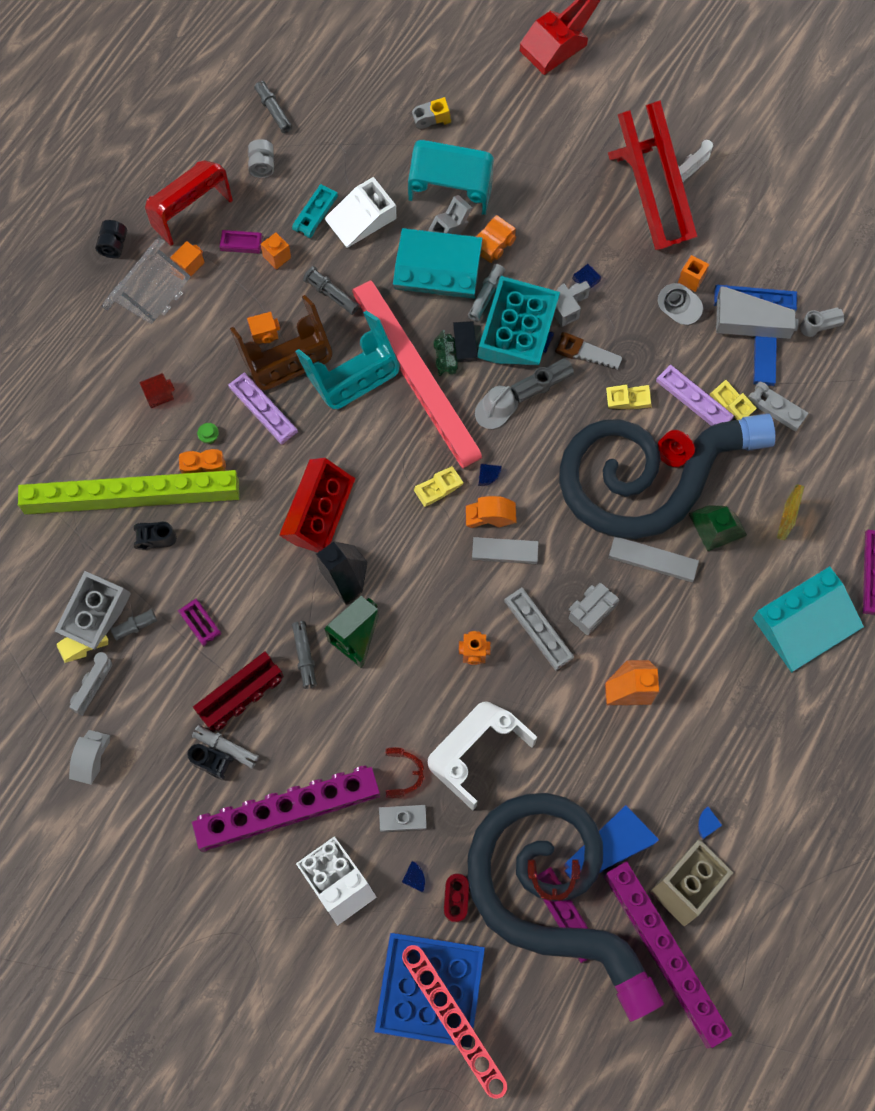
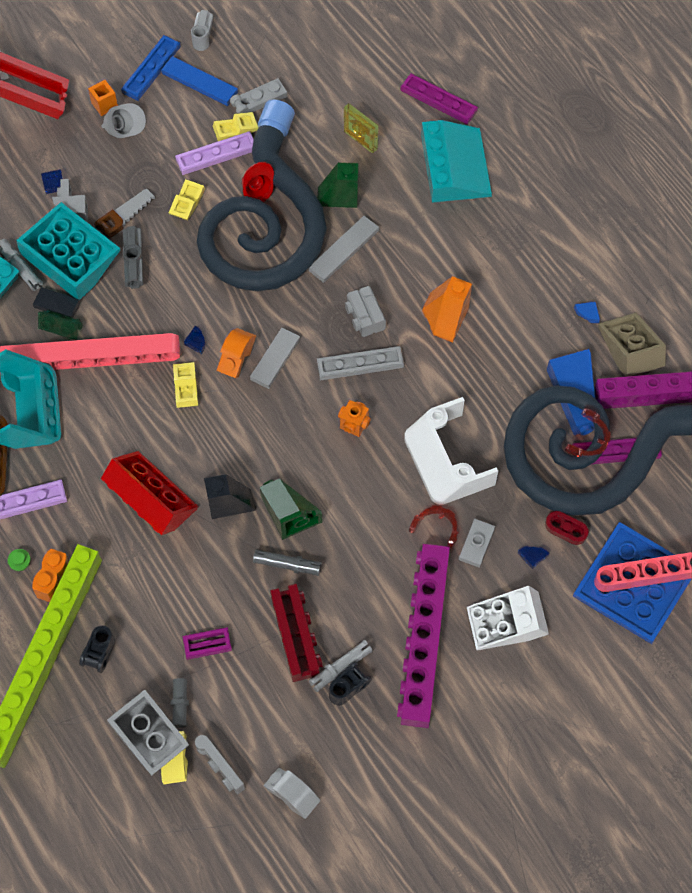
camera: 65 degrees left, 5 degrees down
(496, 407) = (135, 306): light grey piece -> none
(752, 316) = (169, 74): light grey slope -> none

